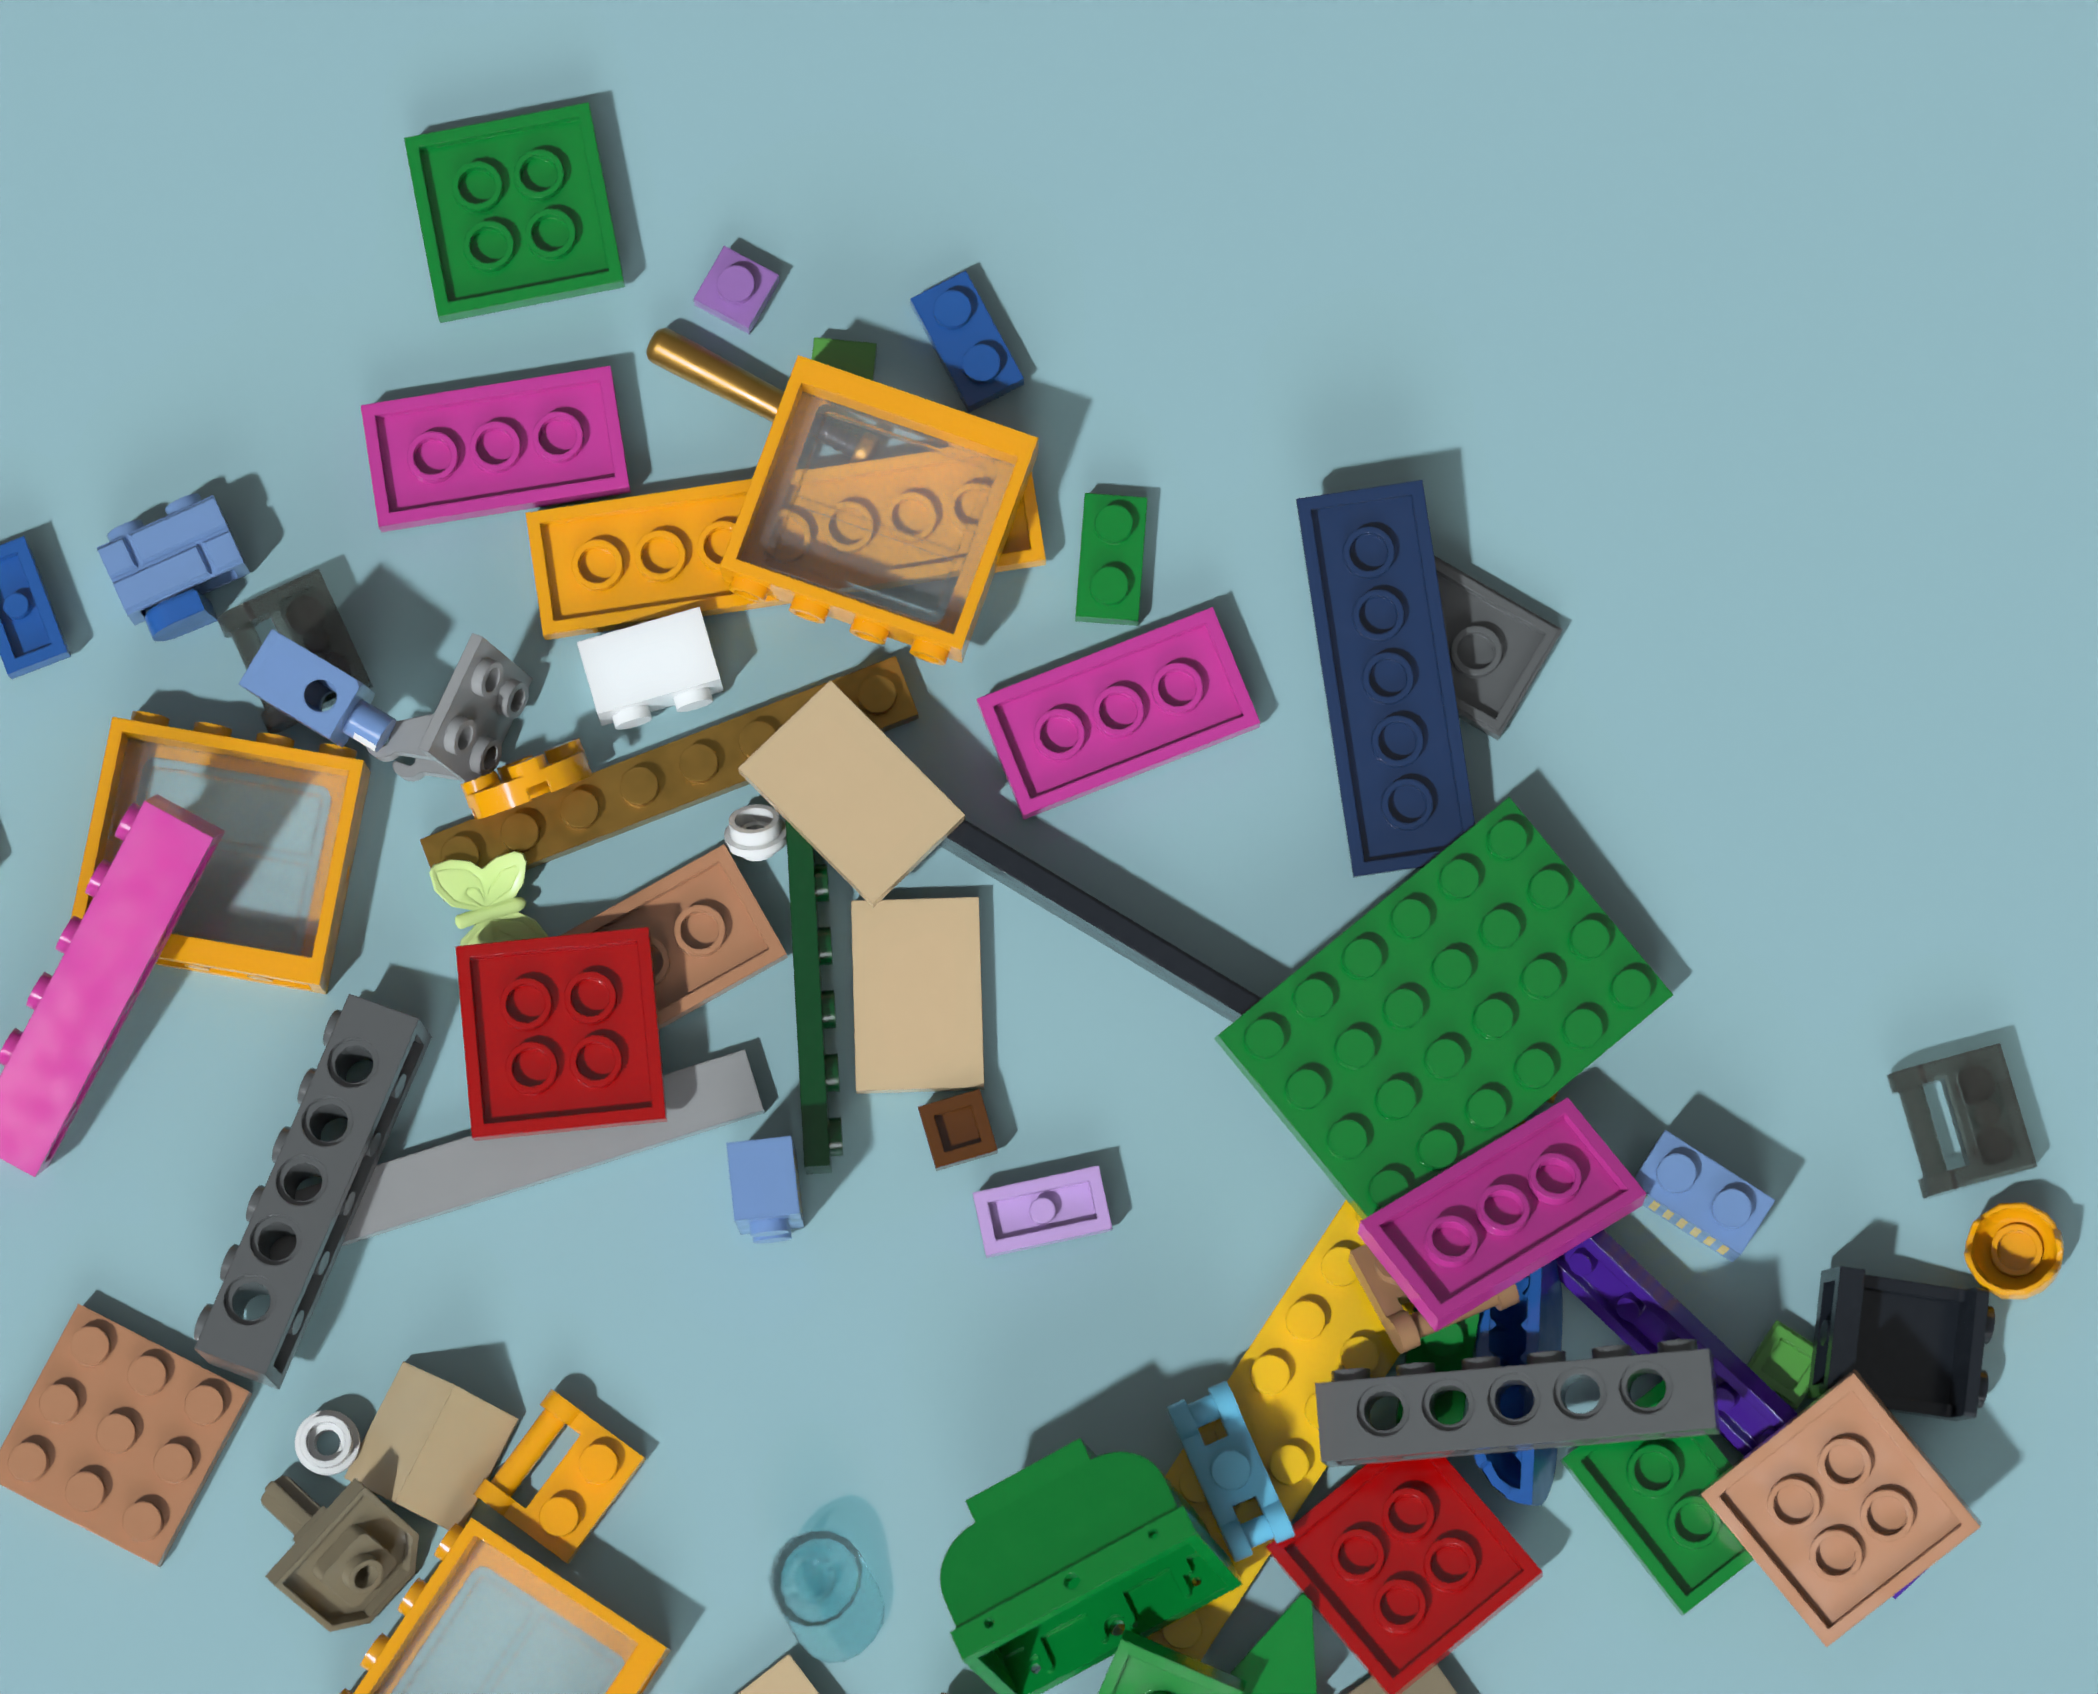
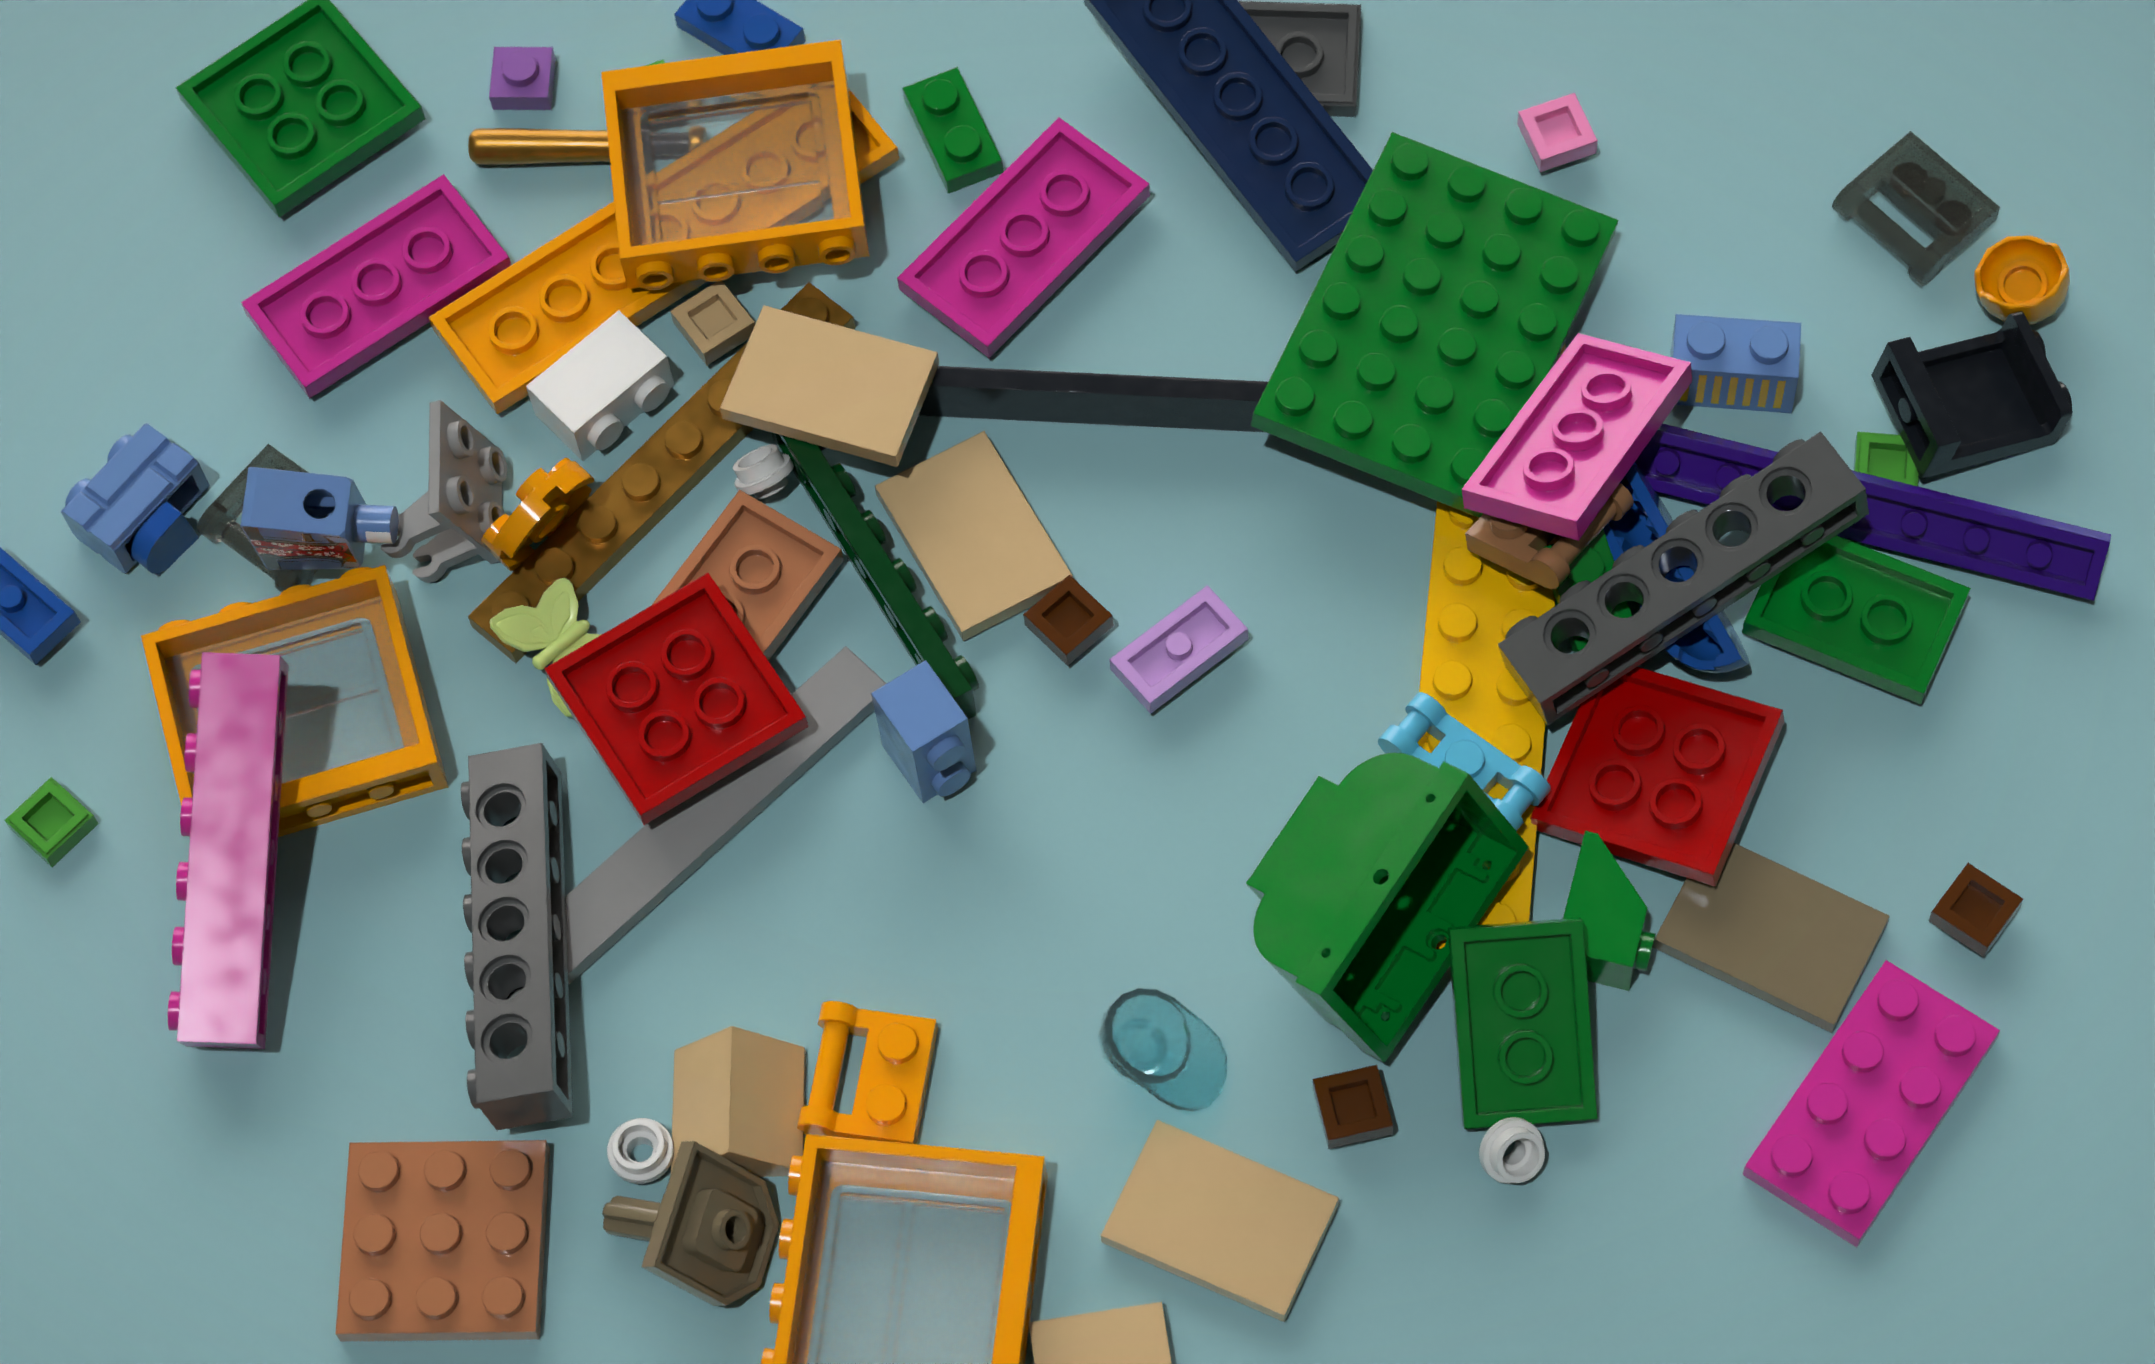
camera: 20 degrees left, 15 degrees down
(786, 652) = (713, 322): none -> tan plate
(1672, 865) = (1557, 132): none -> bright pink plate
(1841, 1508) = (2006, 529): nougat plate -> none

